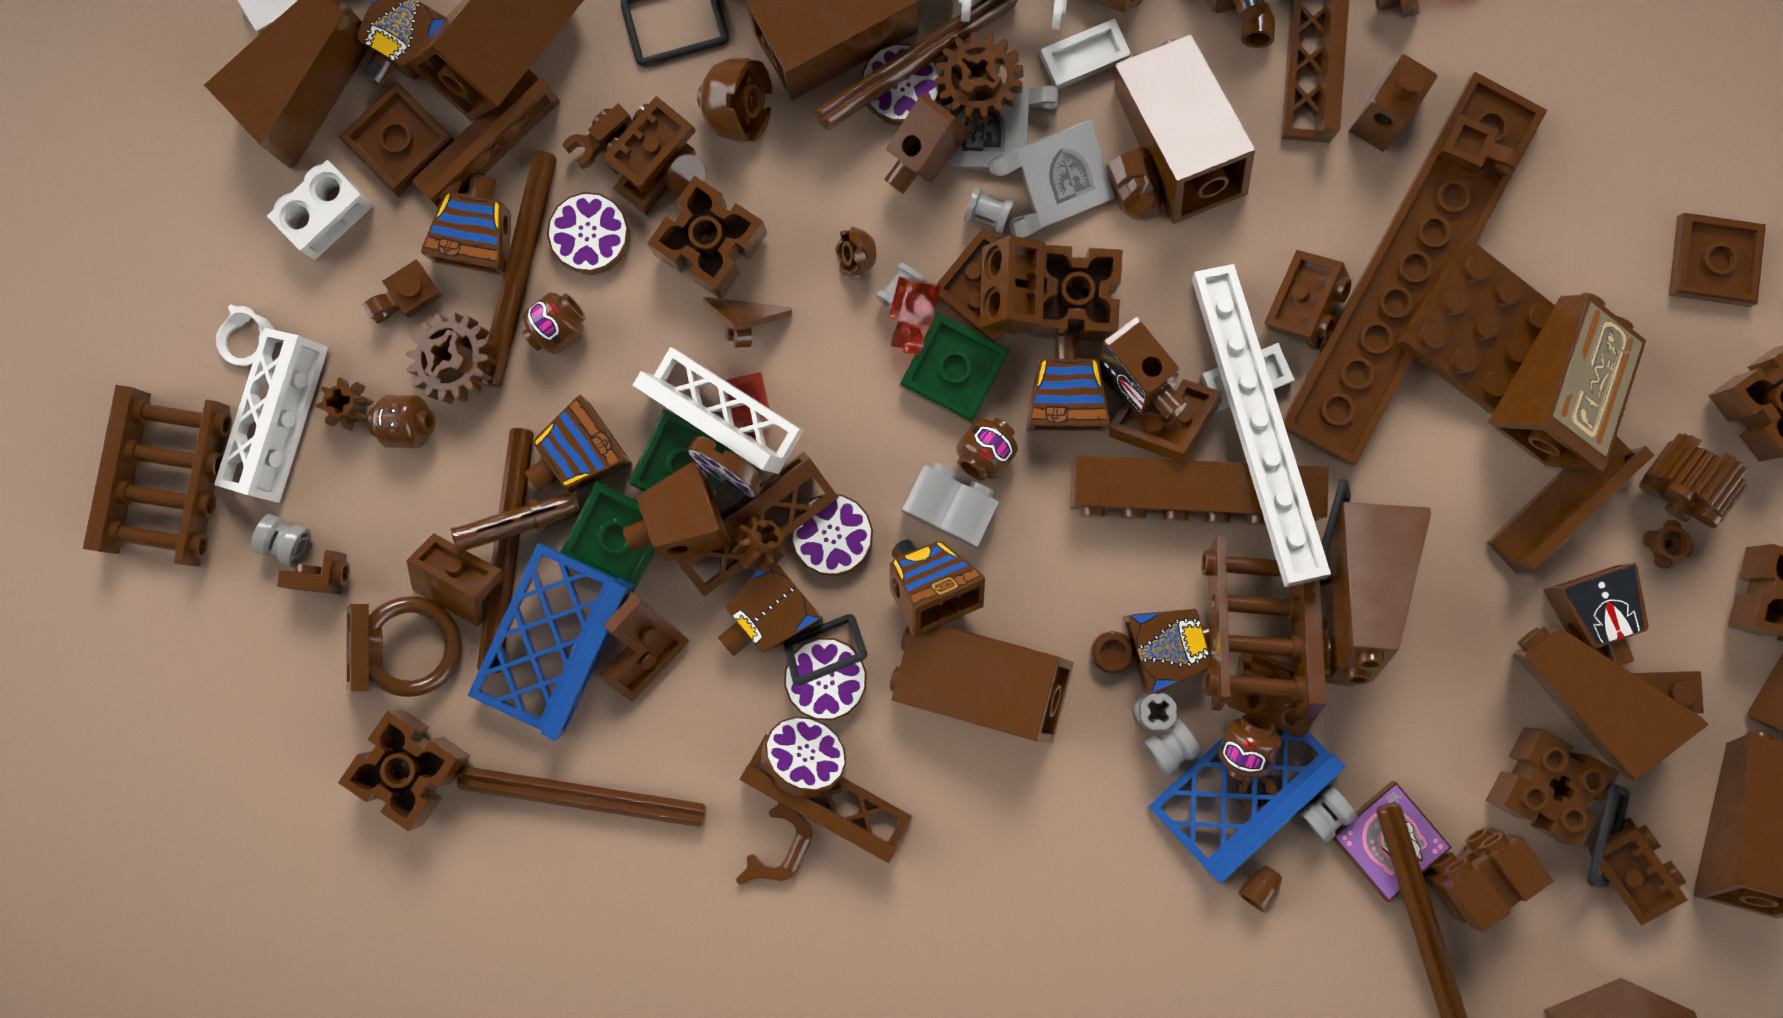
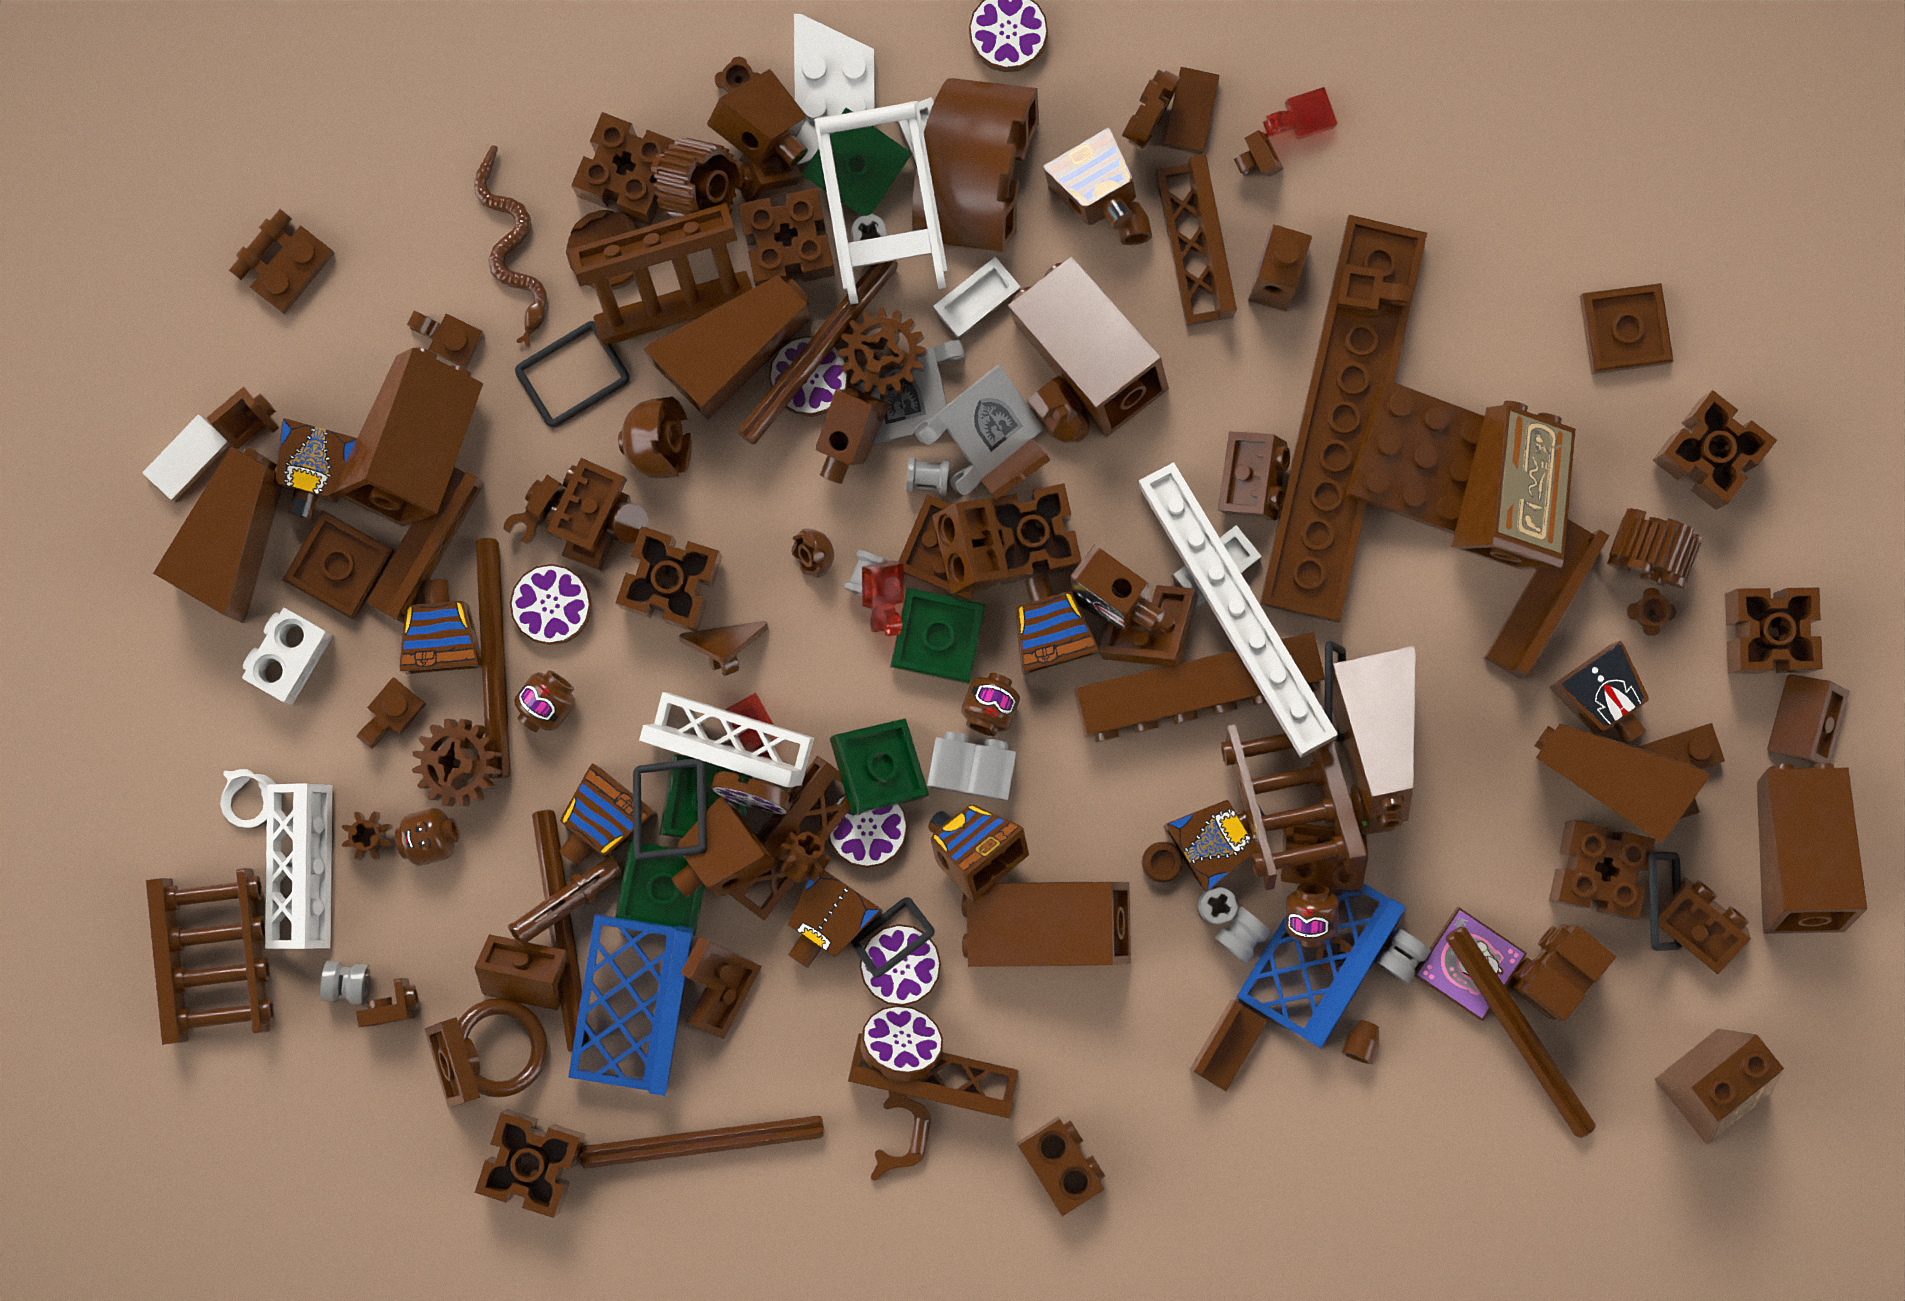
camera: 25 degrees left, 0 degrees up
(636, 503) = (637, 811): none -> black piece
(859, 478) = (879, 766): none -> dark green plate
(918, 925) = (1053, 1169): none -> reddish brown brick
(1077, 224) = (1015, 469): none -> reddish brown piece
(1127, 852) = (1228, 1045): none -> reddish brown panel

